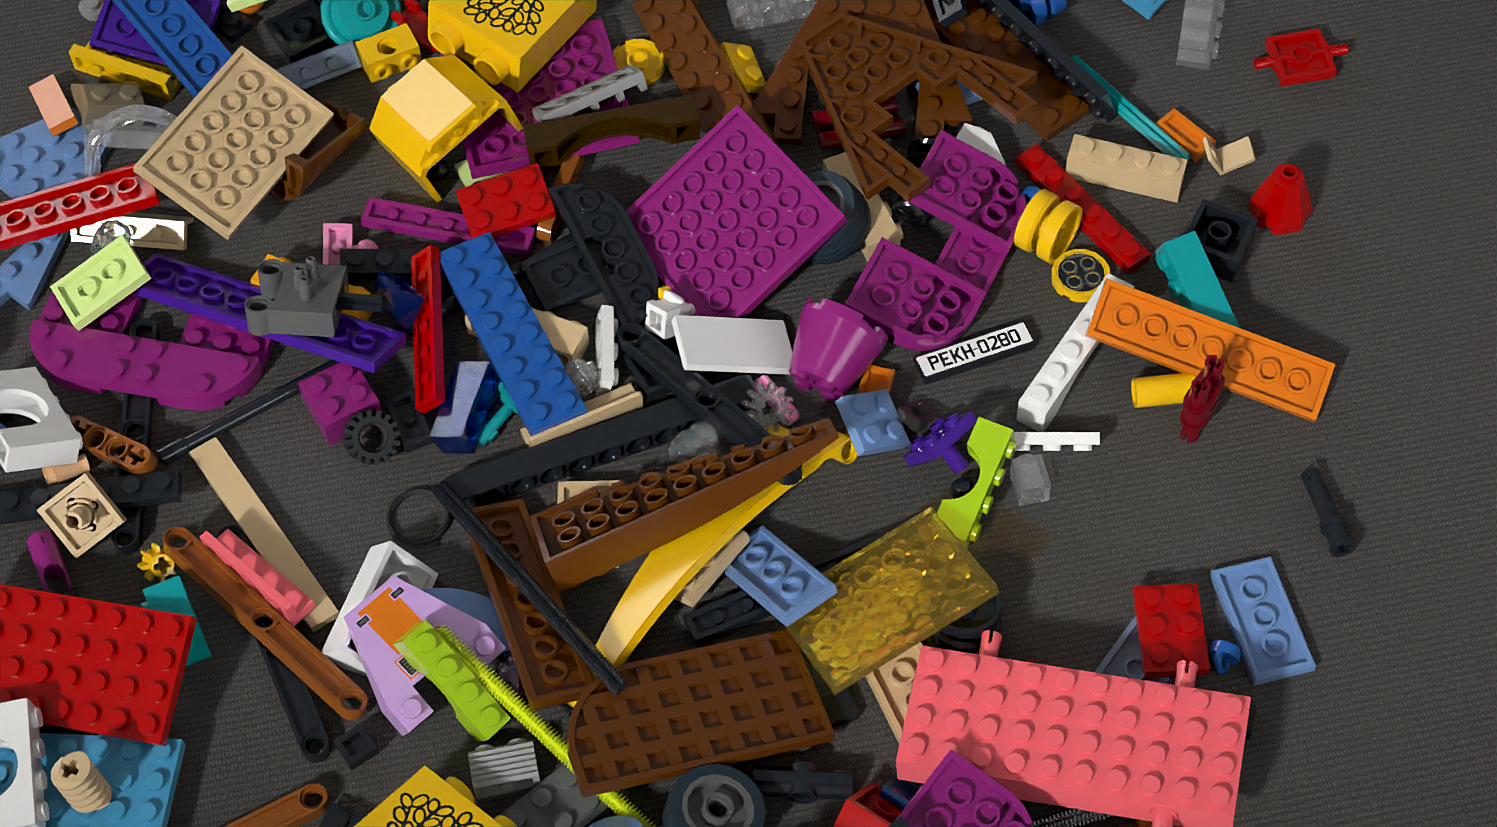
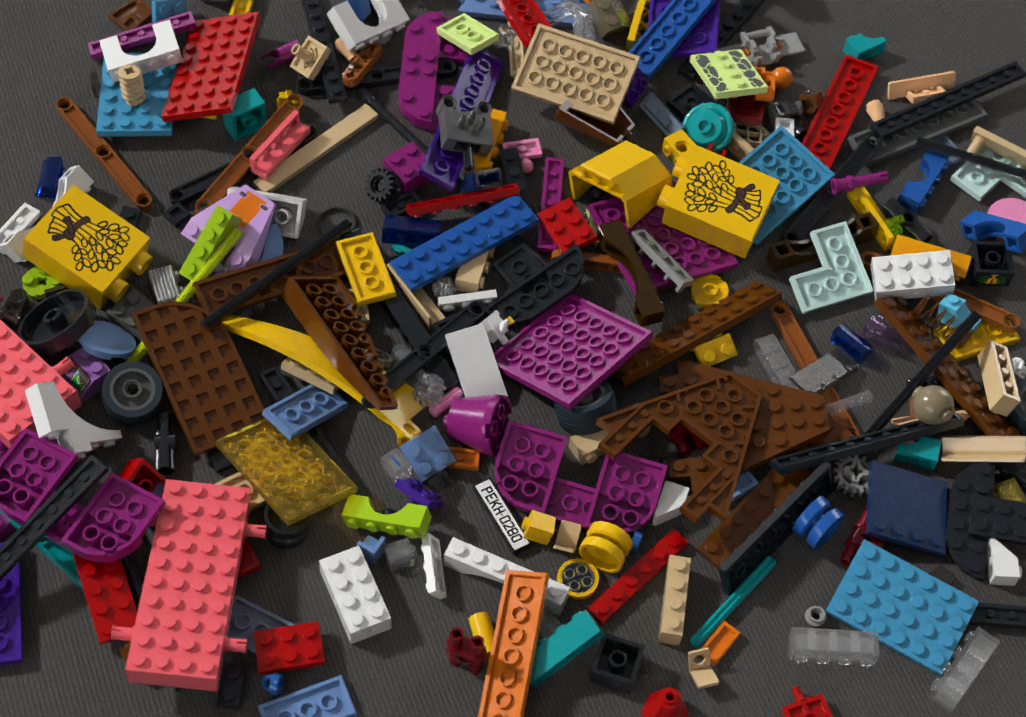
camera: 75 degrees right, 0 degrees up
(532, 470) = (366, 269): none -> yellow tile
(883, 469) = (396, 465): none -> clear brick
(1005, 303) = (538, 527): none -> yellow brick
(1015, 513) = (372, 548): none -> medium blue panel
(1020, 277) = (567, 536): none -> tan bracket
(1090, 539) = (355, 594): none -> white brick
(1154, 28) = (818, 611): none -> light grey plate

